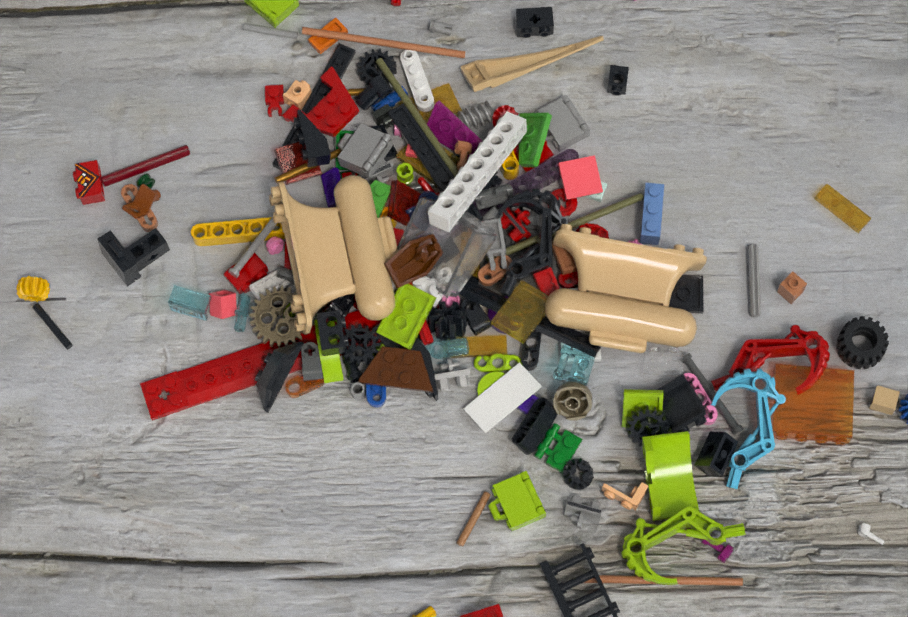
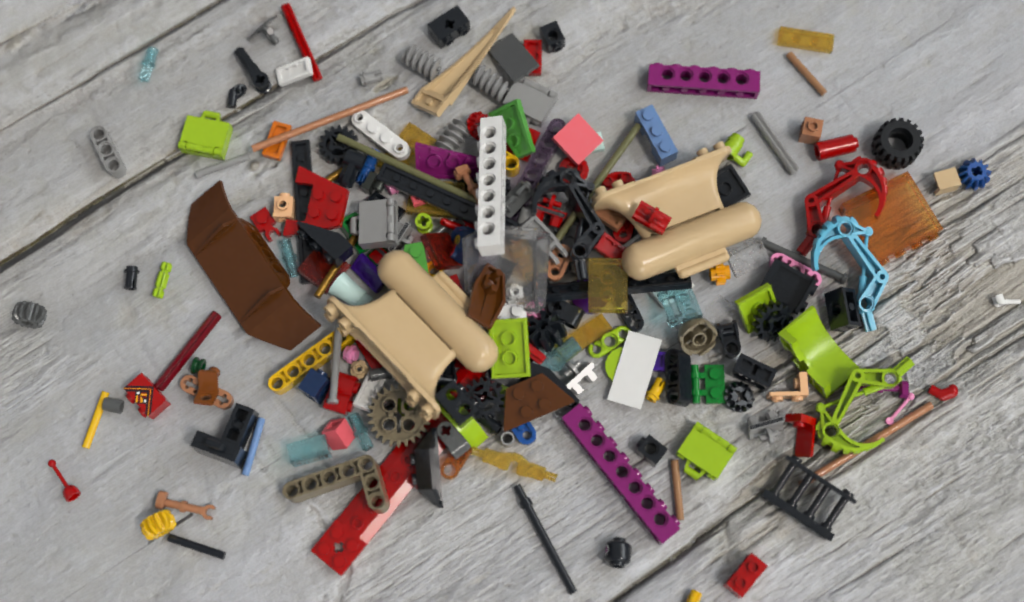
camera: 30 degrees left, 5 degrees up
(38, 62) = (29, 314): none -> dark grey gear
(38, 177) = (95, 421): none -> yellow bar
(48, 274) = (163, 501): none -> nougat piece
(58, 174) = (113, 405): none -> dark grey hinge
(140, 76) = (131, 277): none -> black pin
(148, 273) = (253, 446): none -> medium blue bar
(161, 96) = (162, 279): none -> lime axle
(200, 341) = (341, 480): none -> dark tan beam
(228, 251) = (315, 385): none -> dark blue brick
(232, 129) = (246, 272): none -> reddish brown piece
(274, 266) = (359, 364): none -> tan plate
(275, 137) = (289, 257): none -> clear light blue pin
(305, 190) = (349, 291): none -> light aqua plant
(339, 454) = (526, 504): none -> black bar
(343, 406) = (503, 461): none -> clear yellow piece
(388, 537) = (618, 553): none -> black head
(424, 407) = (621, 484): none -> magenta brick
(475, 479) = (654, 458): none -> black brick
(491, 38) = (421, 62): none -> light grey piece
(508, 426) = (655, 391): none -> yellow pin
(538, 89) = (490, 84): none -> light grey piece
(572, 78) = (513, 58): none -> dark grey piece
(589, 88) = (534, 47): none -> red plate
(594, 275) = (651, 217): none -> red hips
(602, 417) = (729, 337): none -> black piece
(602, 459) = (753, 372): none -> black brick
(618, 532) = (805, 433): none -> red bracket
(629, 361) = (719, 274): none -> light orange gear
(696, 572) = (889, 420): none -> bright pink hinge
(715, 261) = (736, 142): none -> lime piece
(729, 201) = (694, 86): none -> magenta brick
(760, 579) = (943, 394): none -> red arm
(806, 314) = (835, 147): none -> red brick
(823, 238) = (806, 73): none -> medium nougat bar

